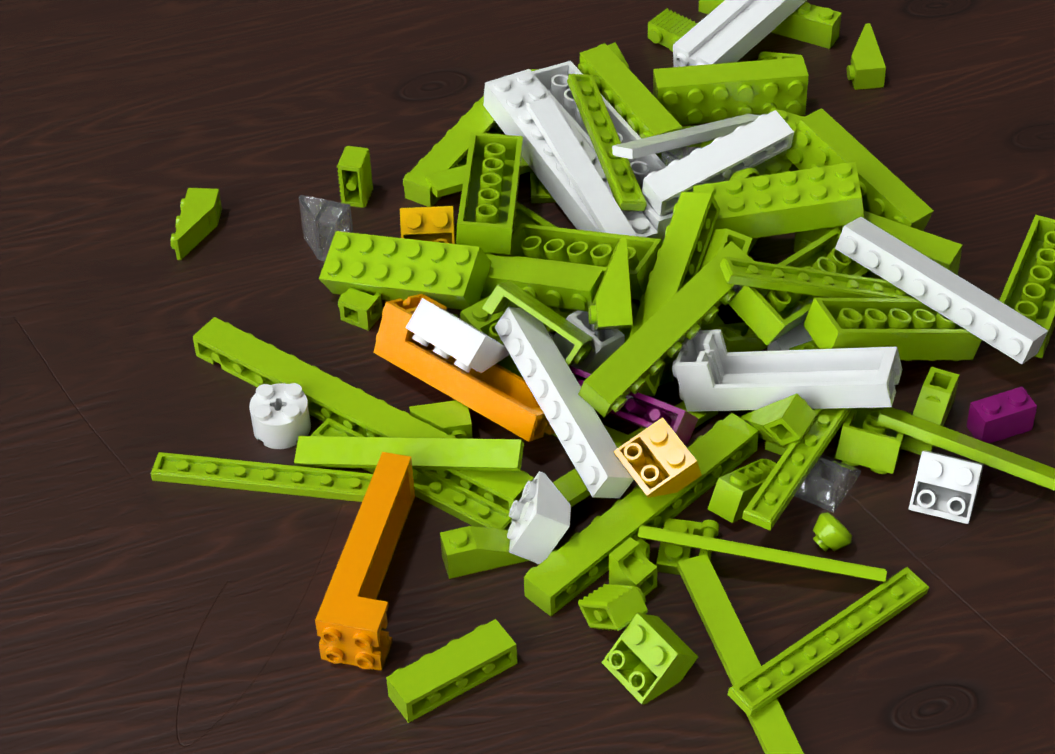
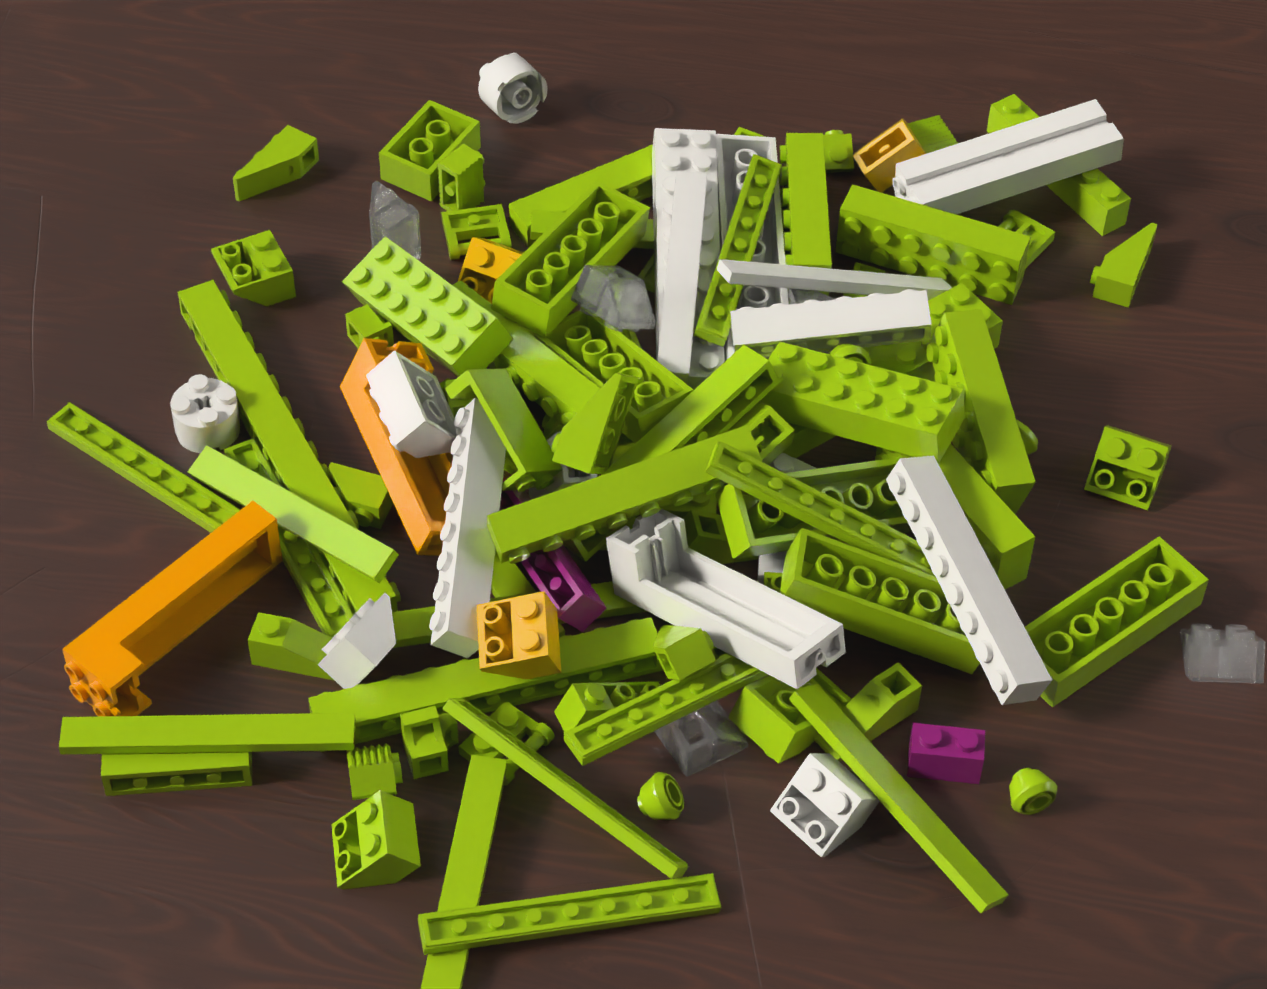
camera: 25 degrees right, 5 degrees up
(242, 295) = (256, 269): none -> lime slope
(311, 164) = (423, 142): none -> lime brick
(342, 101) = (512, 88): none -> white brick
(381, 205) = (471, 223): none -> lime plate
(467, 635) = (207, 733): none -> lime tile
(543, 204) = (615, 297): none -> clear slope
(652, 44) = (882, 154): none -> yellow slope
(970, 183) = (1127, 467): none -> lime slope

